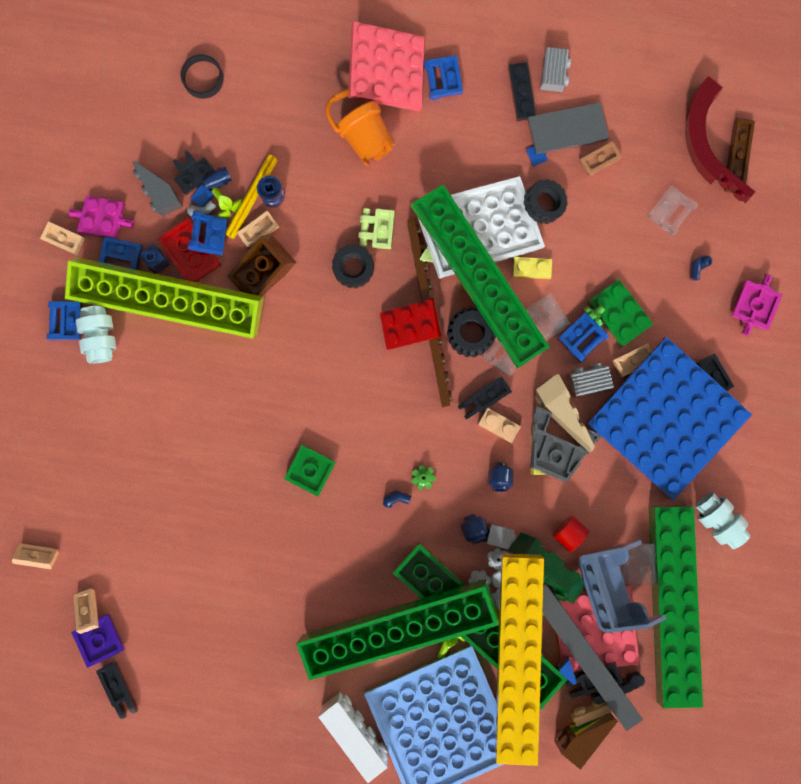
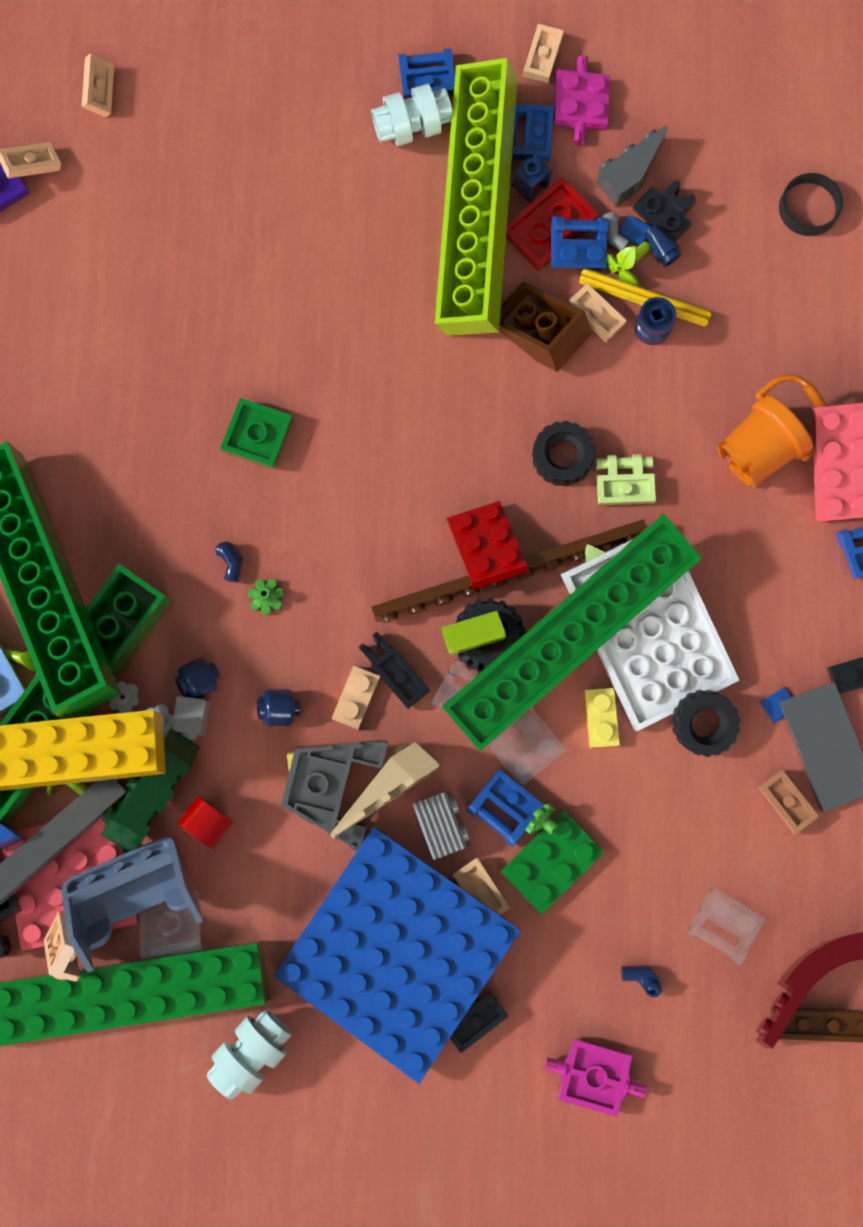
camera: 85 degrees right, 5 degrees down
(472, 340) = (473, 633): none -> lime slope
(646, 637) = (59, 952): none -> light nougat bracket

